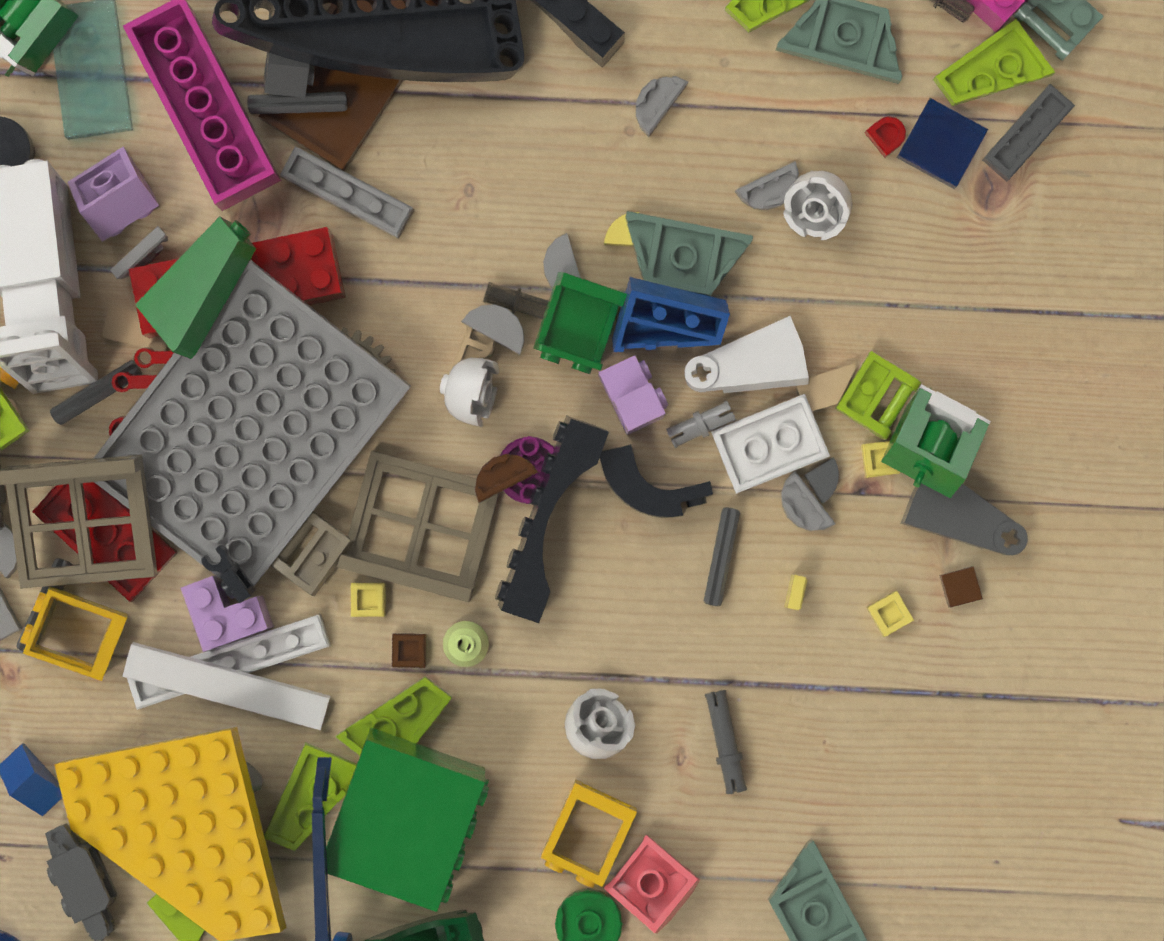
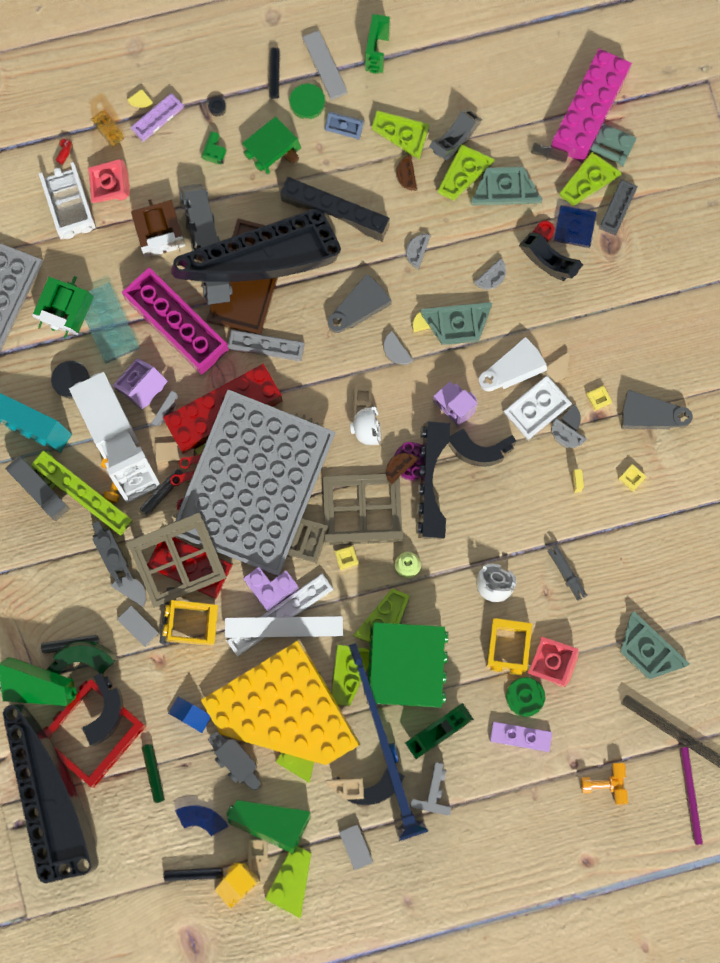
camera: 20 degrees left, 10 degrees down
(197, 286) = (206, 410): green slope -> none
(235, 581) = (271, 566): black plate -> none
(287, 104) = (220, 308): dark grey axle -> none
(409, 650) = (377, 578): reddish brown tile -> none
(498, 325) = (371, 389): light grey tile -> none
(515, 300) = (376, 374): clear smoke axle -> none
(527, 170) = (362, 303): none -> dark grey piece
(578, 322) = (413, 373): green panel -> none
(668, 316) = (456, 357): blue wedge -> none
(701, 424) = (496, 408): light grey pin -> none
(721, 556) = (531, 474): dark grey axle -> none
(817, 205) = (520, 275): white cylinder -> none
(868, 389) = (580, 362): lime plate -> none
(877, 190) = (548, 259): none -> black arch
(936, 441) = (625, 377): green piece -> none
(960, 587) = (665, 452): reddish brown tile -> none

